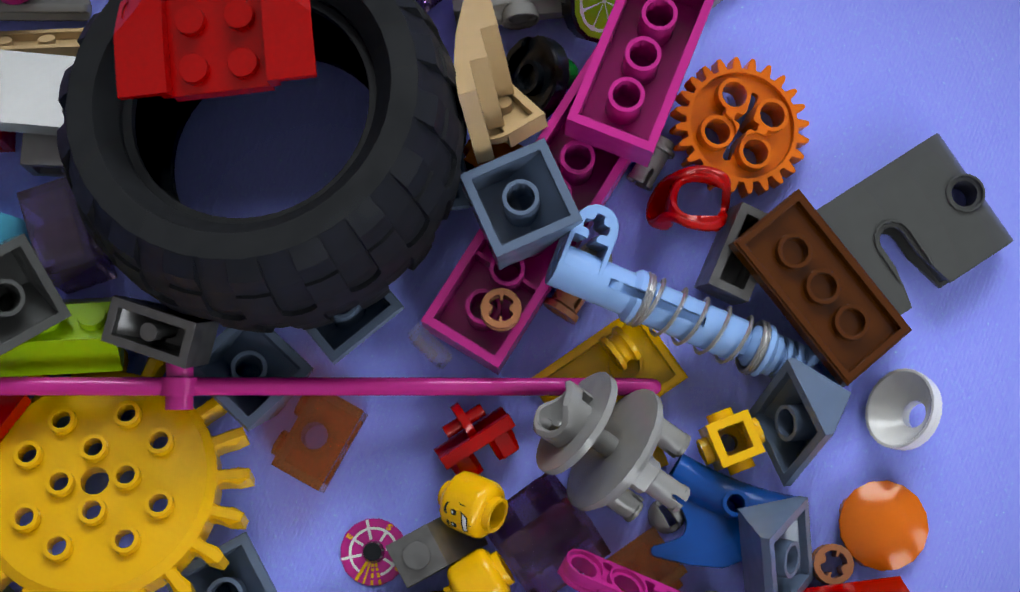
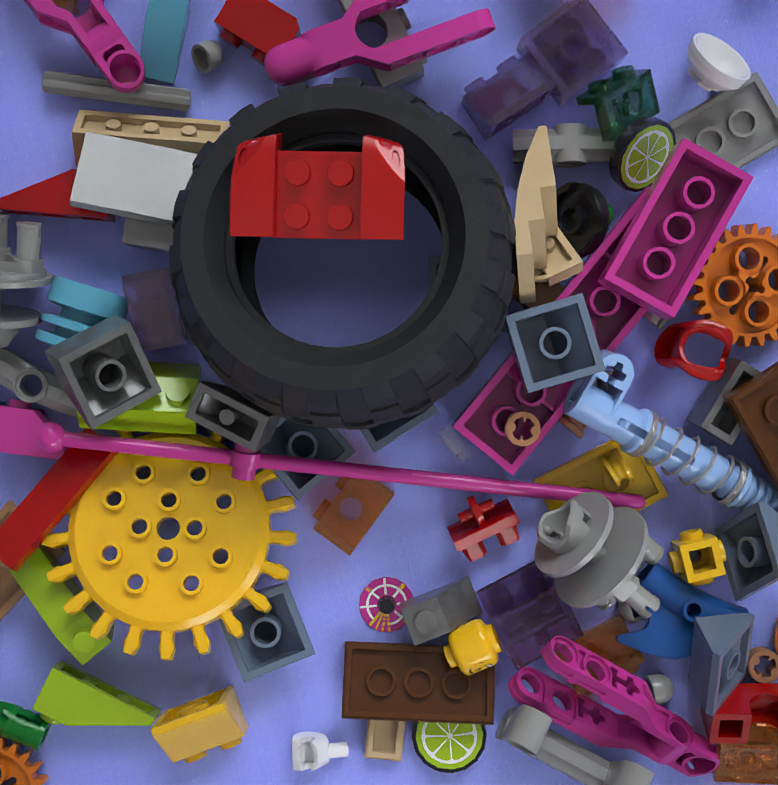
camera: 10 degrees right, 10 degrees up
(472, 504) = (476, 584): yellow head -> none

